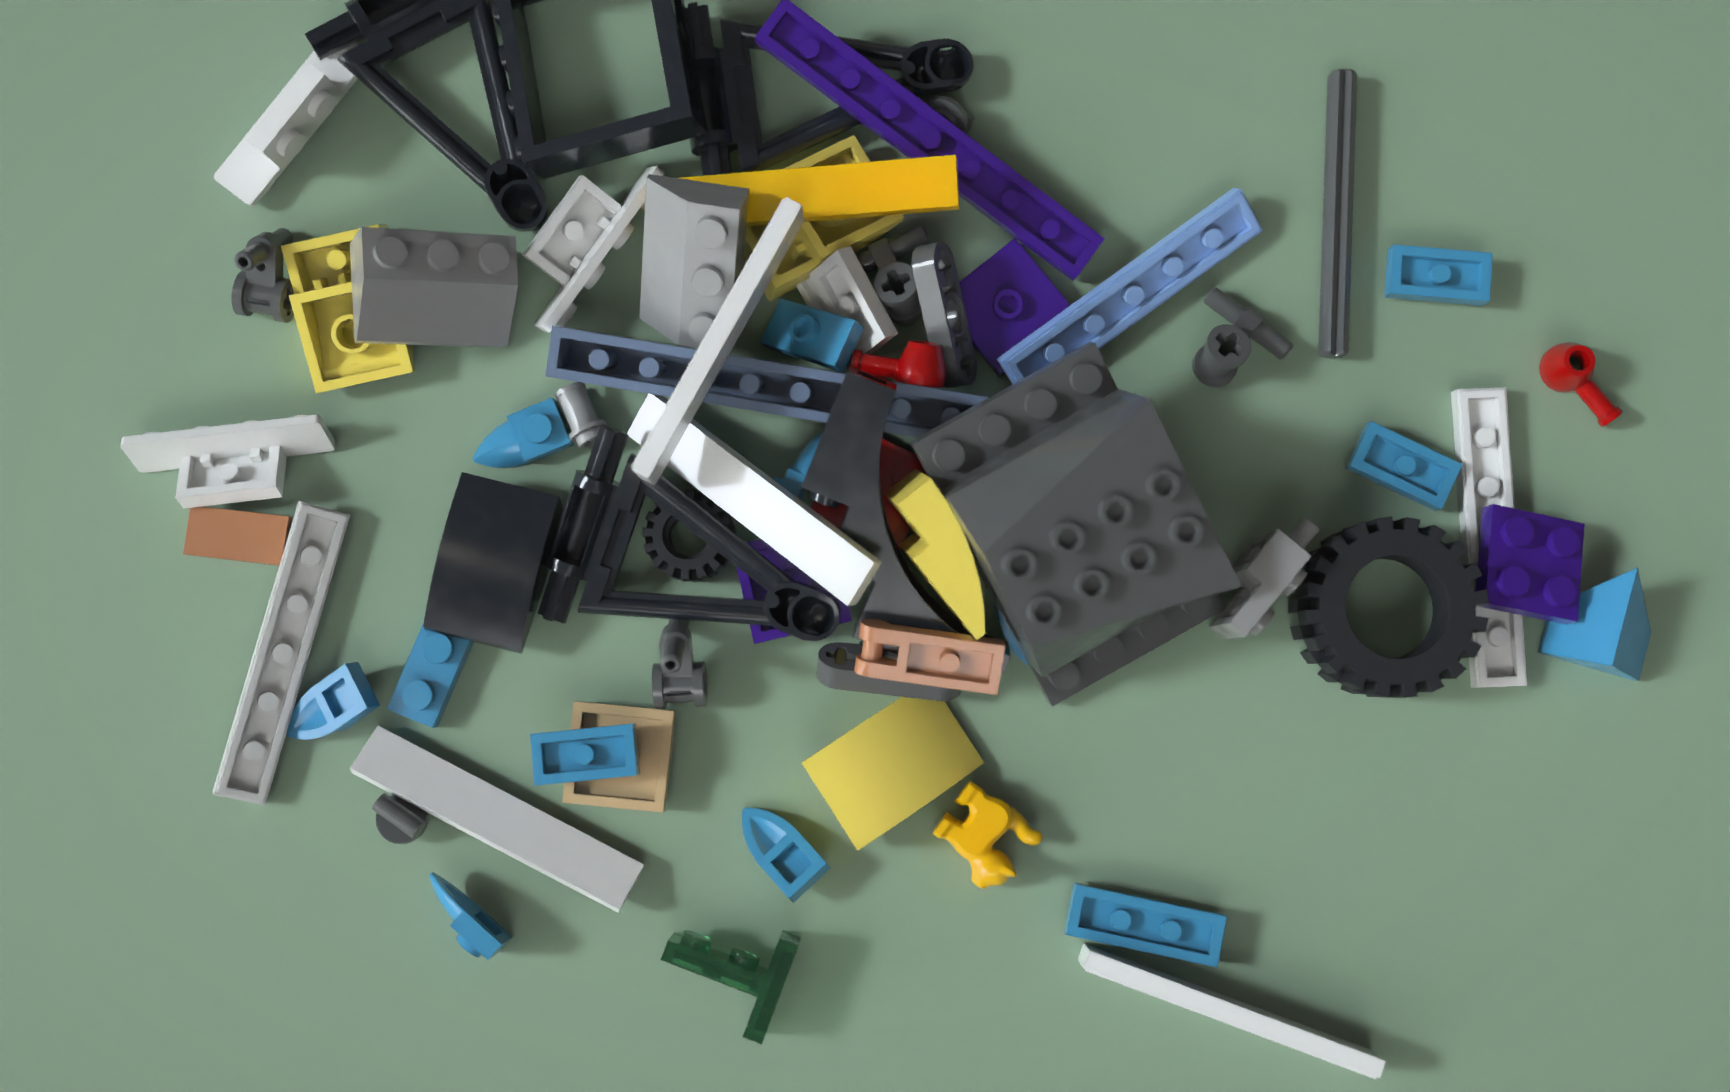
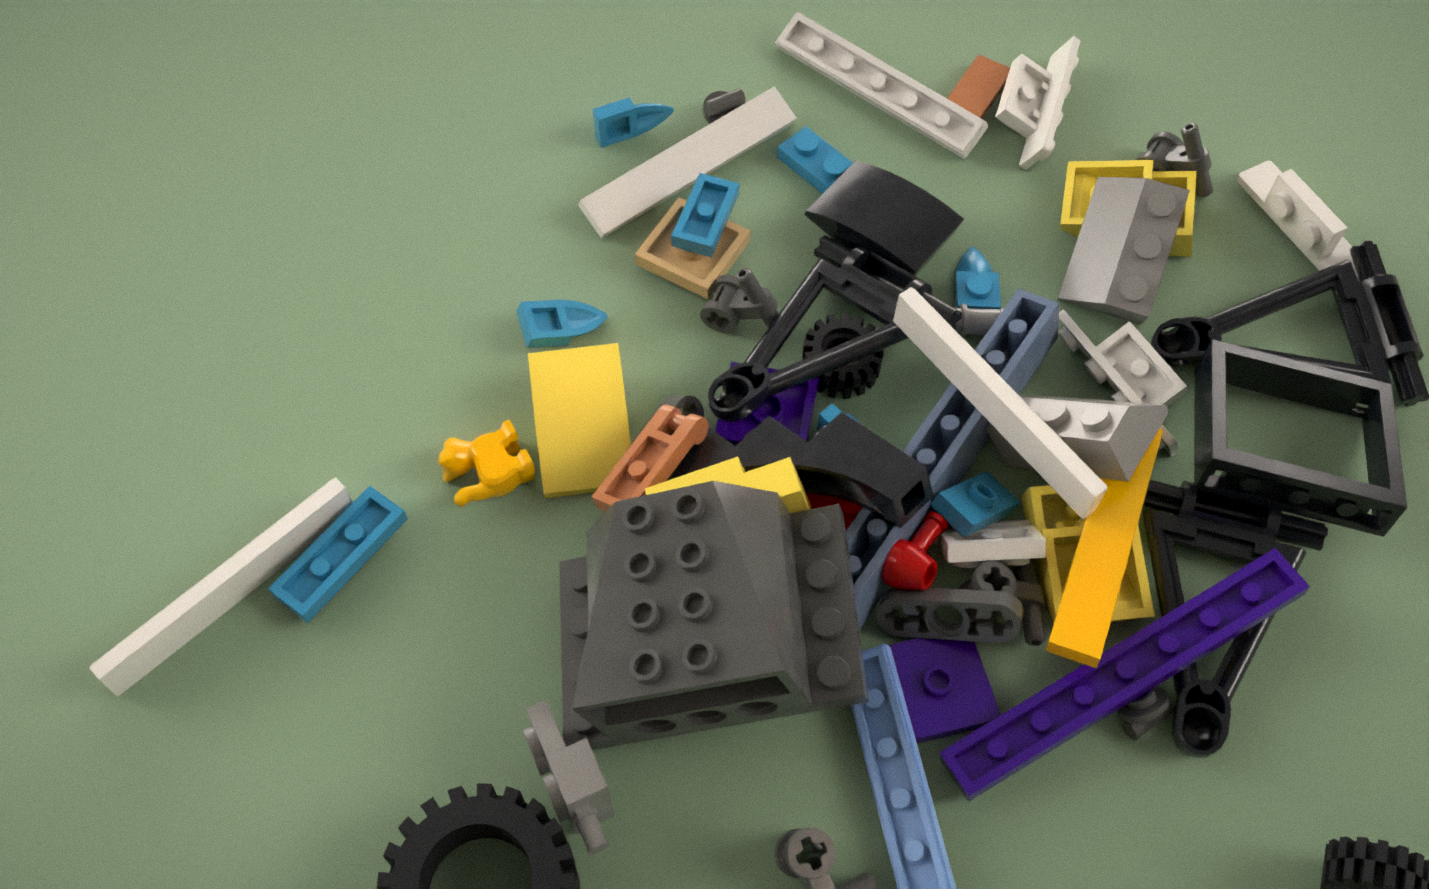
camera: 110 degrees right, 25 degrees down
(333, 704) = (826, 100): dark azure plate -> none
(737, 970) = (488, 258): clear green bracket -> none
(764, 507) = (829, 396): white tile -> none

